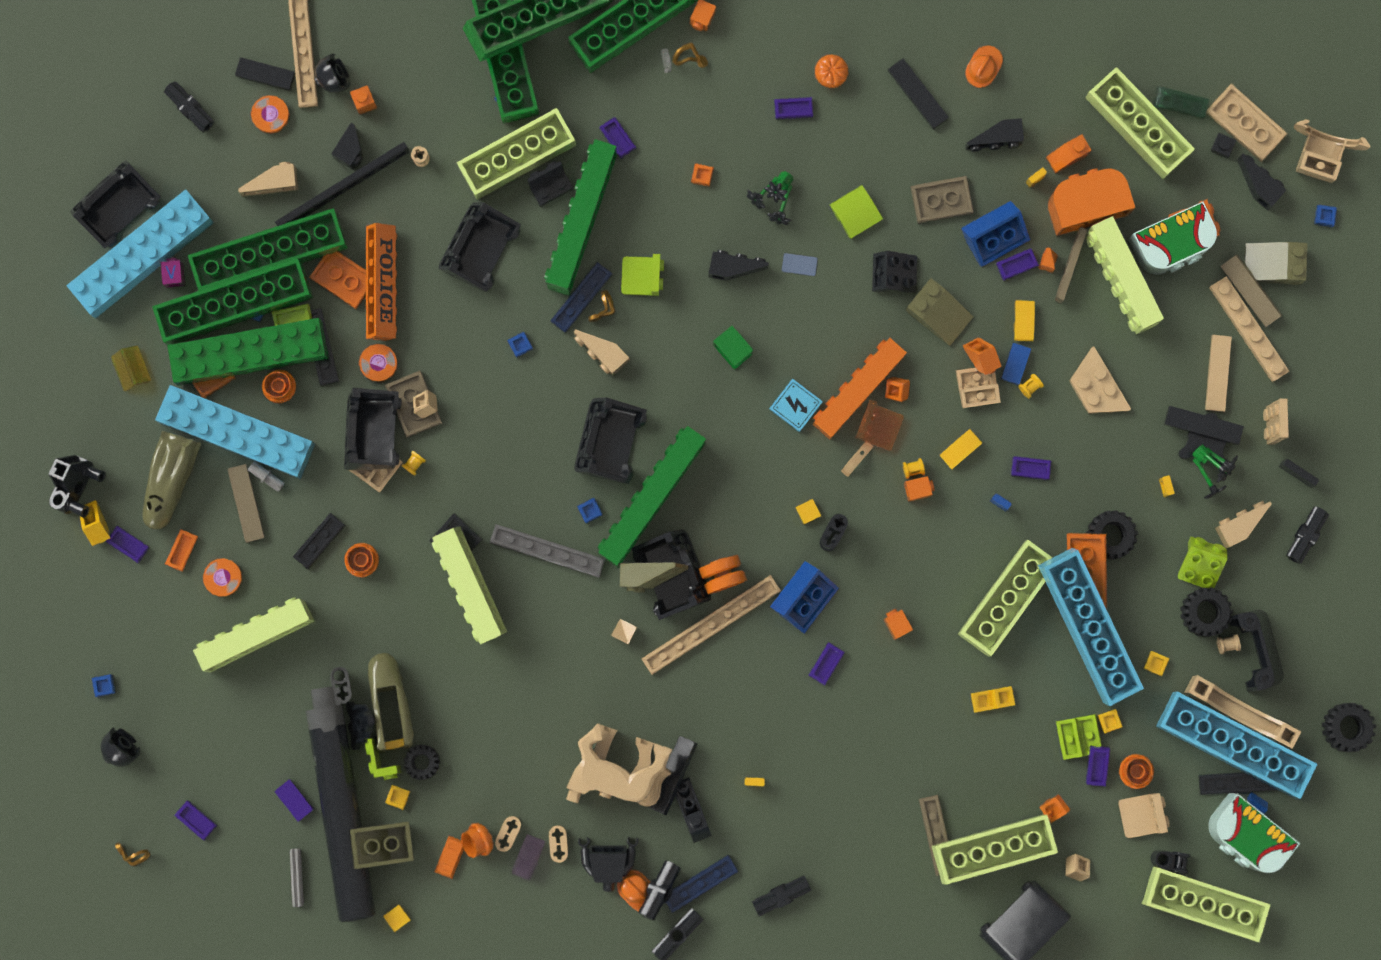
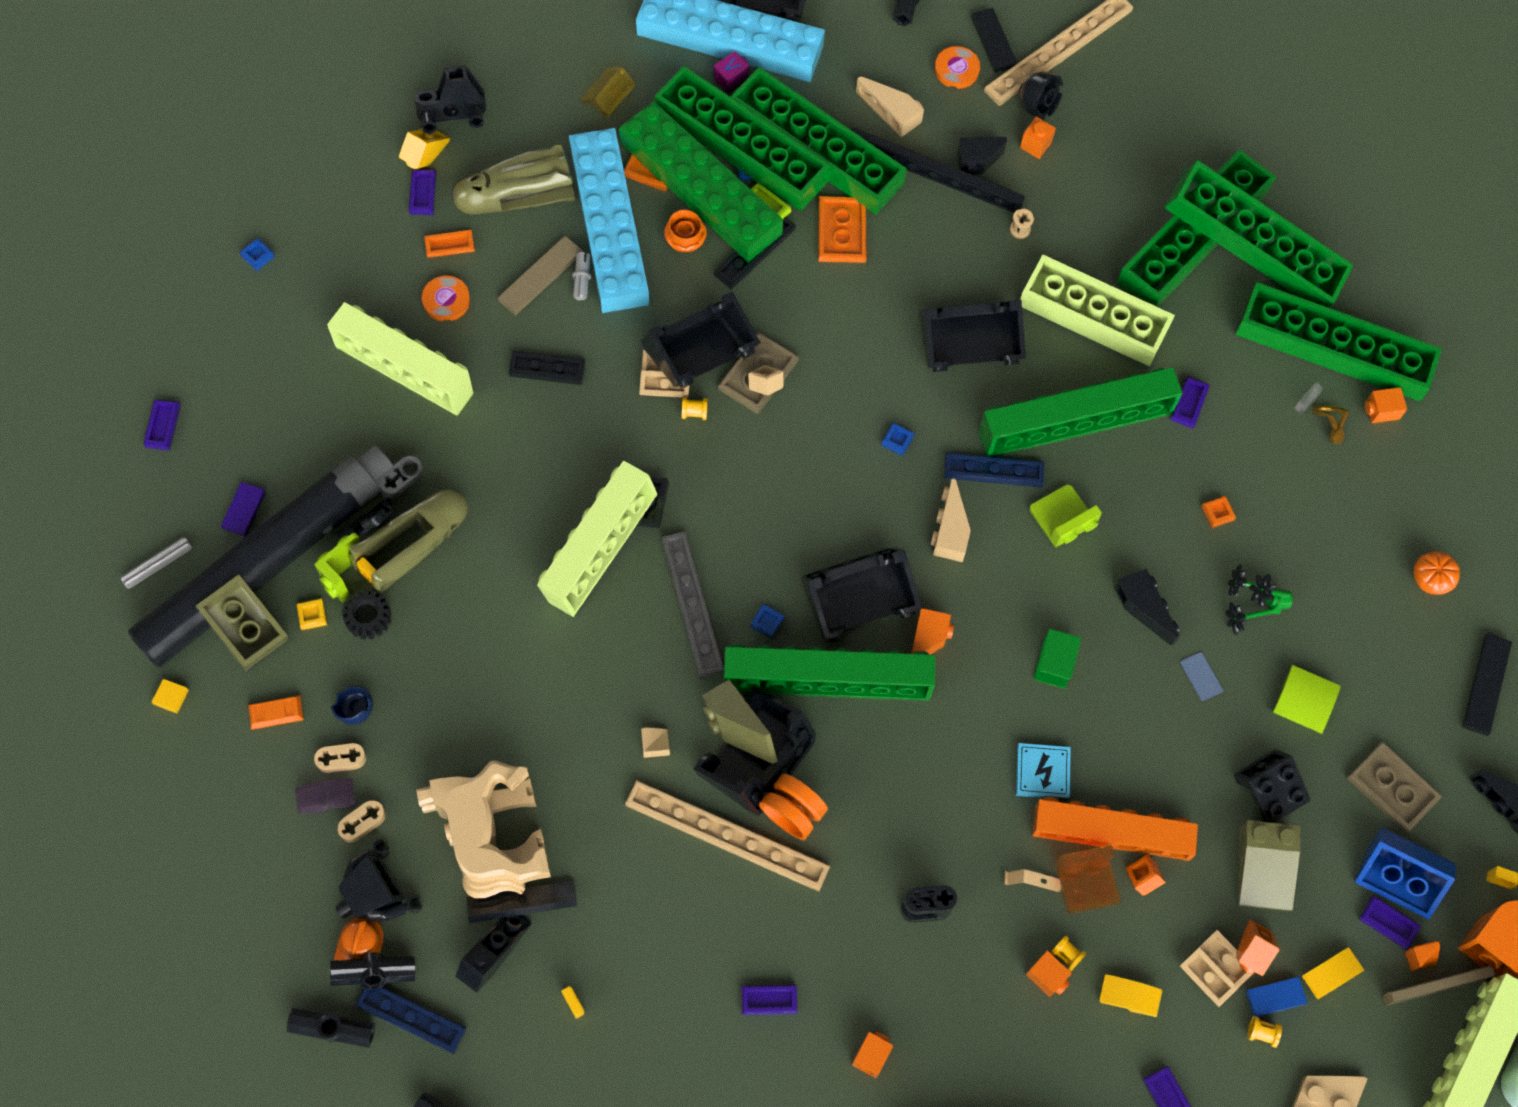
camera: 55 degrees right, 15 degrees down
(118, 748) = (197, 302): black cylinder -> none
(121, 850) = (85, 370): pearl gold piece -> none
(361, 560) = (554, 418): orange piece -> none
(378, 363) = (777, 313): orange tile -> none
(381, 282) = (863, 262): orange brick -> none
(477, 840) = (310, 726): orange piece -> none
(479, 806) = (353, 705): none -> dark blue hair
(549, 183) = (1091, 358): black bracket -> none
(596, 317) = (984, 497): pearl gold piece -> none
(665, 415) = (932, 631): none -> orange slope
(793, 108) = (1364, 561): dark purple tile -> none
(804, 597) = (830, 922): blue slope -> none
(808, 511) = (932, 863): yellow tile -> none
(1000, 502) = (1103, 1085): blue tile -> none

